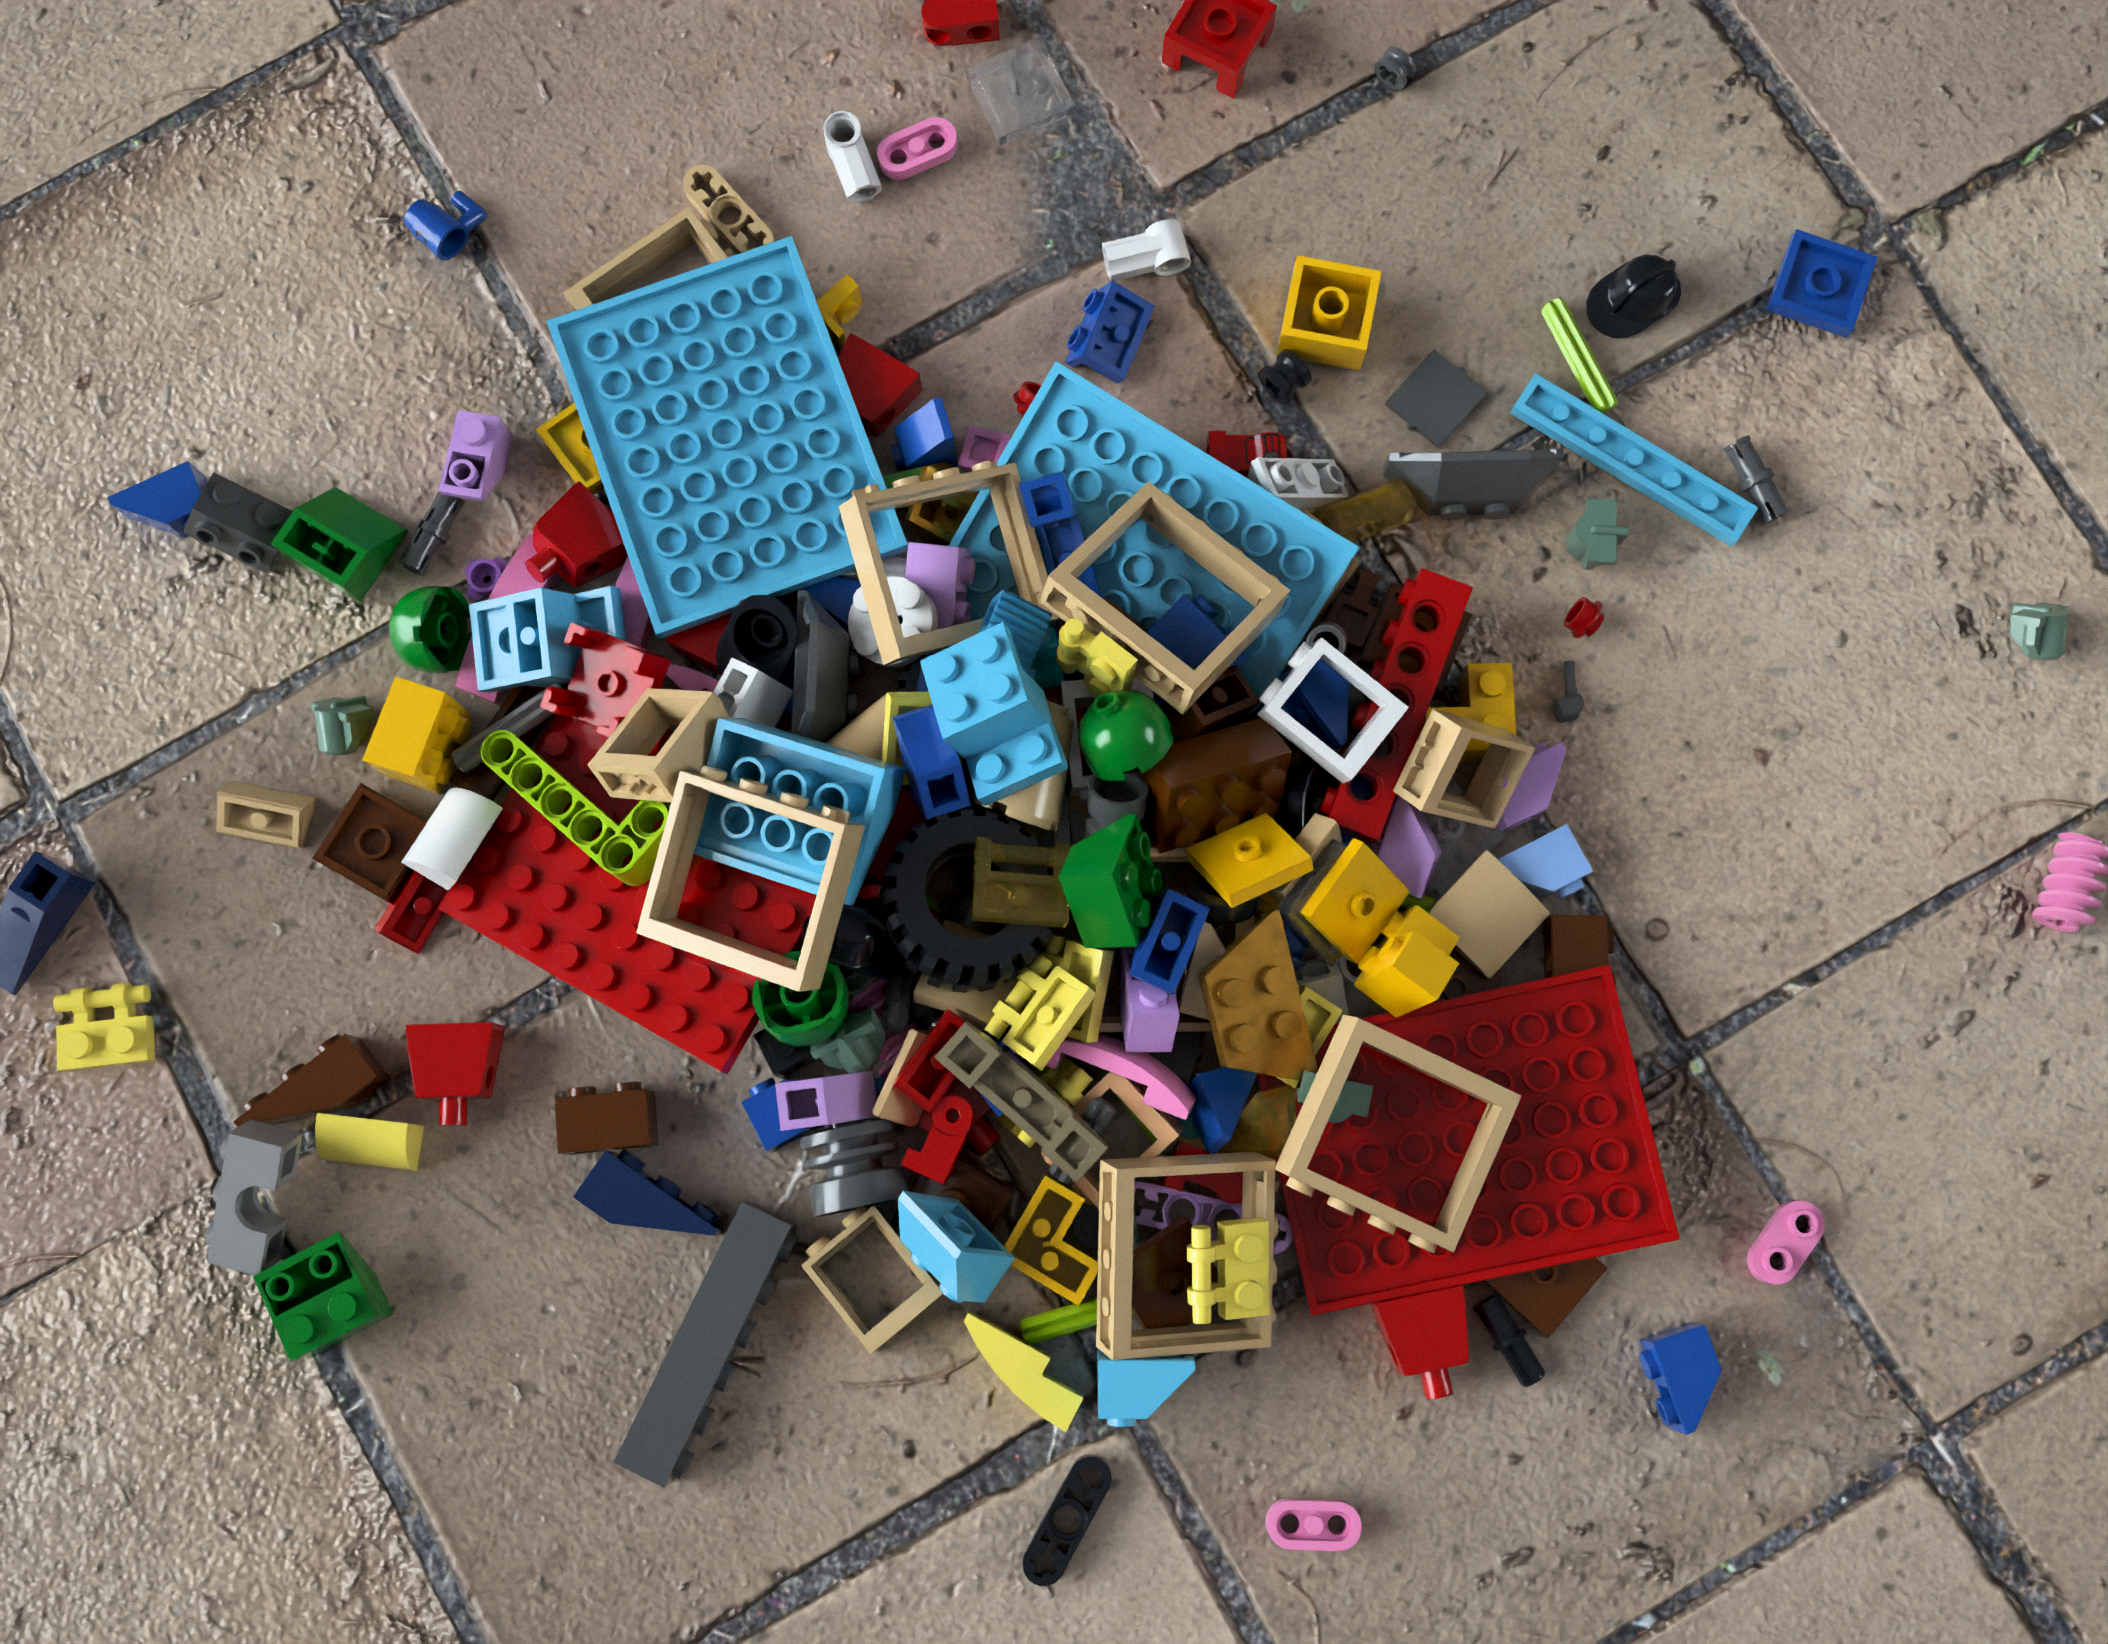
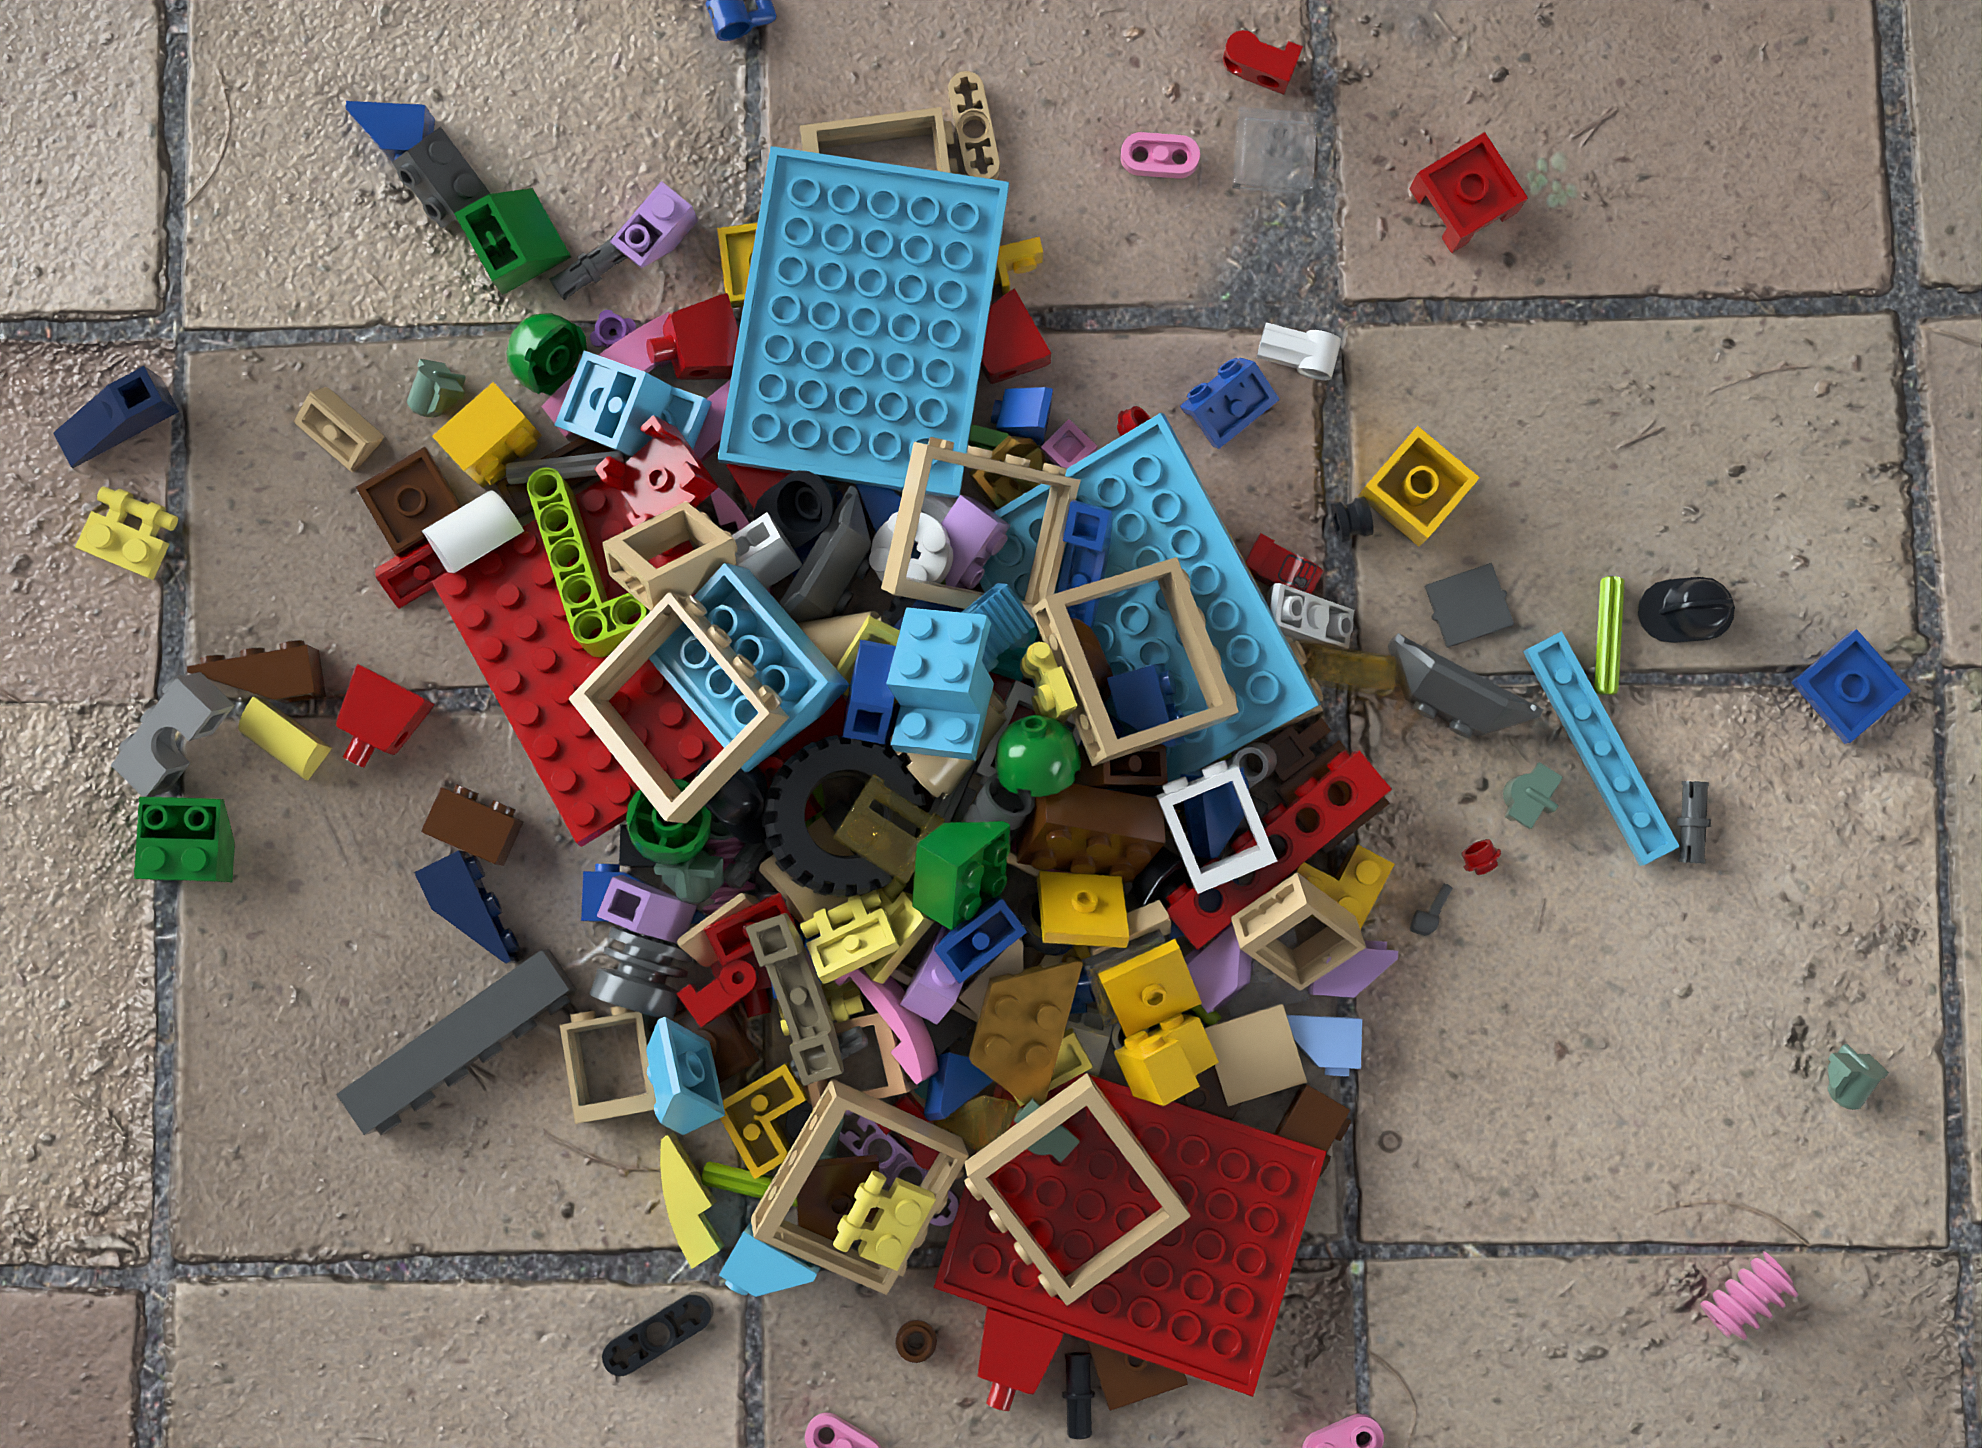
camera: 30 degrees right, 5 degrees up
(851, 158) = (1100, 136): white piece -> none
(1338, 1379) = (909, 1352): none -> reddish brown plate
(1395, 68) = (1600, 303): dark grey bush -> none

